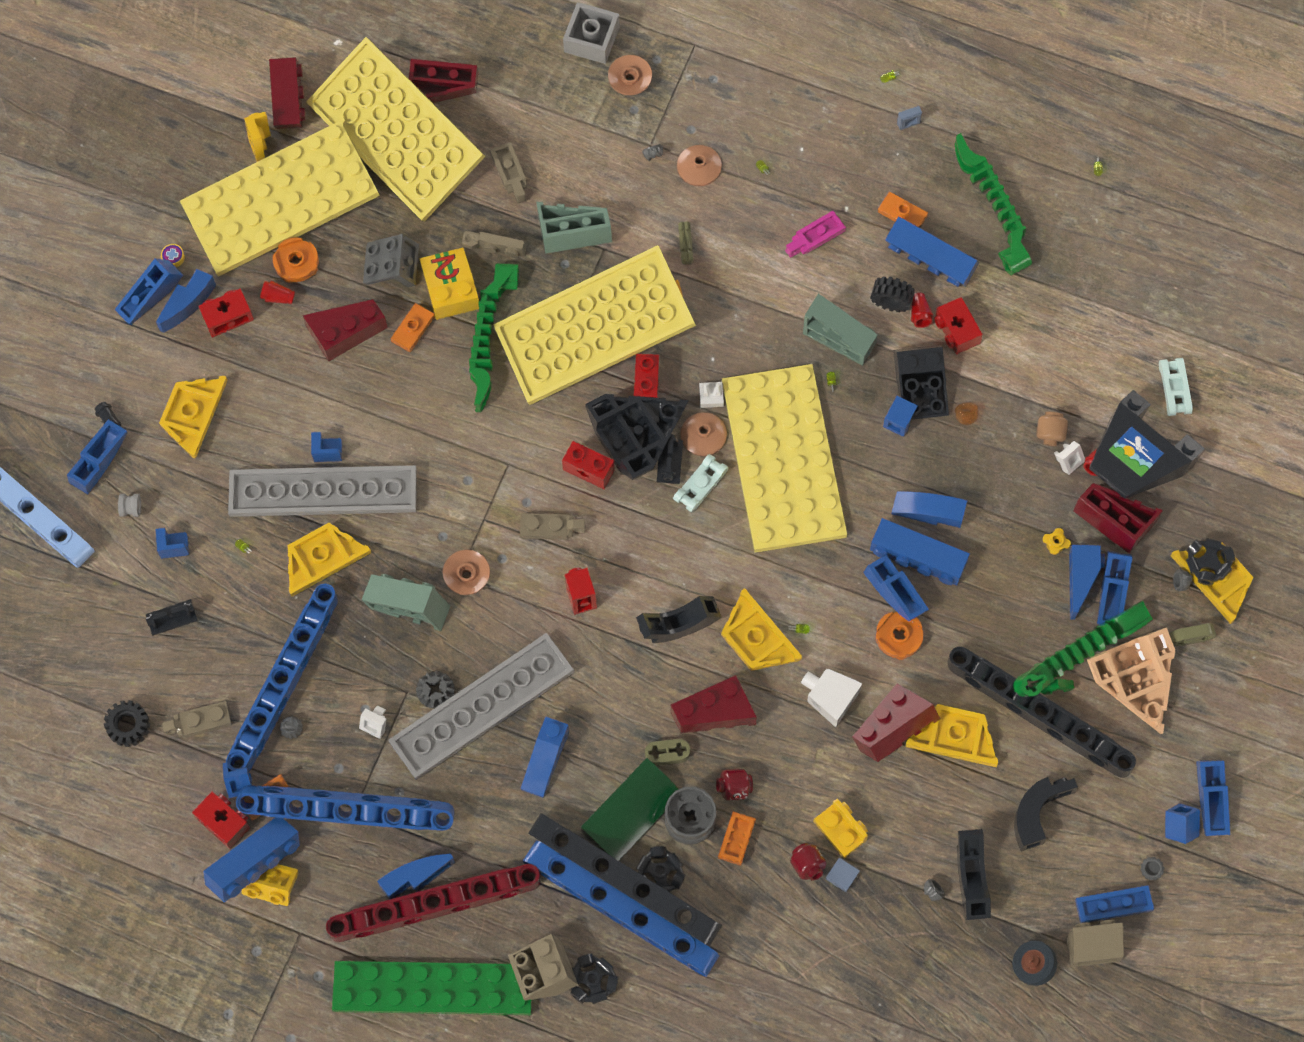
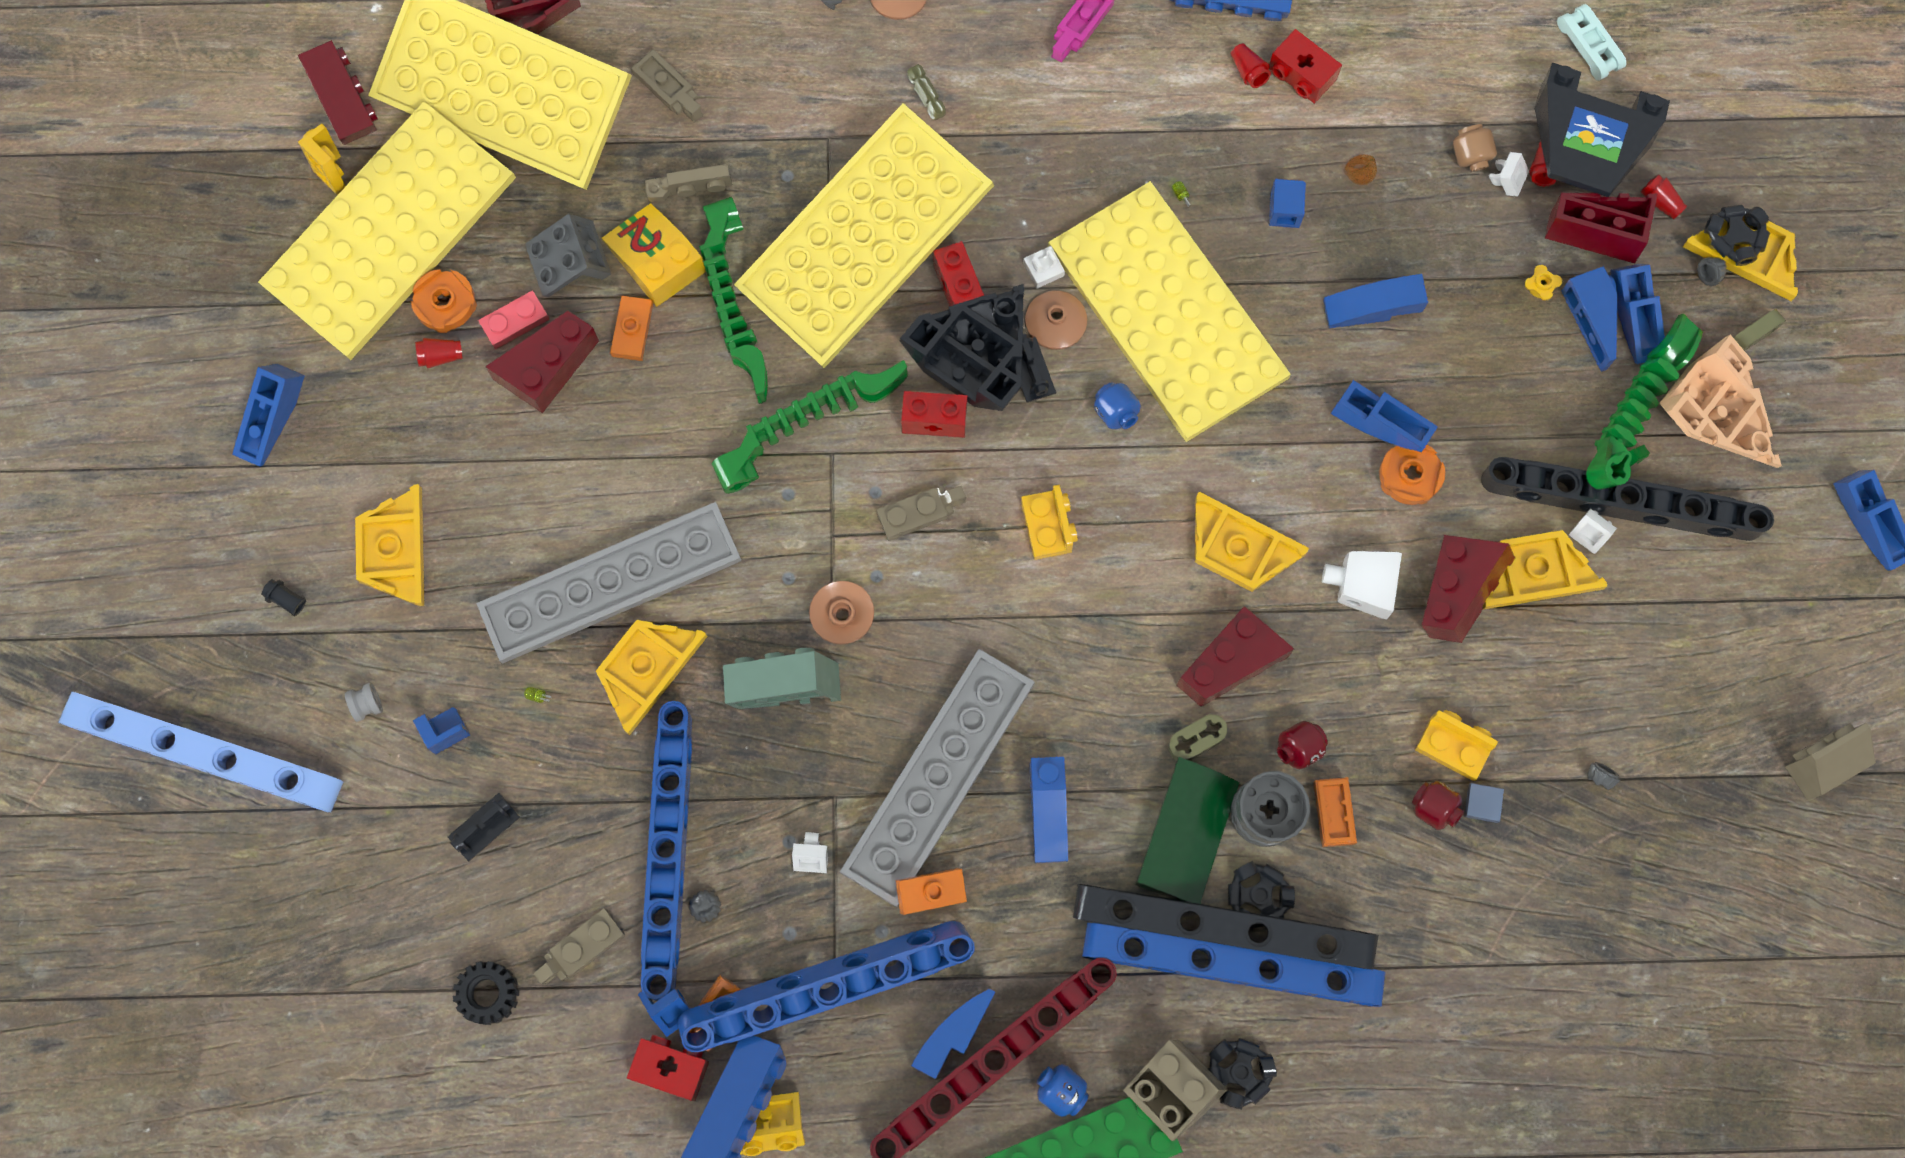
camera: 25 degrees left, 5 degrees up
(96, 457) = (292, 656): blue slope -> none
(174, 254) = (279, 353): tile -> none
(185, 300) = (322, 406): blue slope -> none
(236, 316) = (380, 417): red brick -> none
(325, 449) = (589, 526): blue panel -> none
(336, 291) = (513, 319): none -> coral plate
(423, 690) = (878, 791): dark grey gear -> none
(439, 448) = (736, 467): none -> green piece
(442, 777) = (931, 891): none -> orange plate
(469, 940) = (1062, 1090): none -> blue head
(573, 227) = (780, 124): sand green wedge -> none
(580, 590) = (999, 577): red brick -> none
(632, 568) = (1048, 523): none -> yellow bracket
(679, 622) = (1140, 564): black arch -> none
(700, 483) = (1082, 382): light aqua plate -> none
(715, 508) = (1117, 406): none -> blue head
(801, 628) = (1288, 514): clear neon green piece -> none
(838, 330) = (1166, 127): sand green wedge -> none
(892, 294) = (1210, 57): black tyre -> none
(919, 552) = (1389, 361): blue brick -> none
(922, 380) = (1292, 146): black slope -> none
(972, 874) = (1644, 741): black arch -> none
(1006, 723) = (1592, 531): none -> white tile
(1027, 818) = (1670, 625): black arch -> none
(1034, 963) = (1770, 815): black wheel -> none
(1114, 904) = (1825, 701): blue plate -> none
(1152, 868) = (1848, 637): dark grey piece -> none
(1173, 515) = (1667, 199): none -> red cone
(1182, 823) = (1856, 566): blue panel -> none

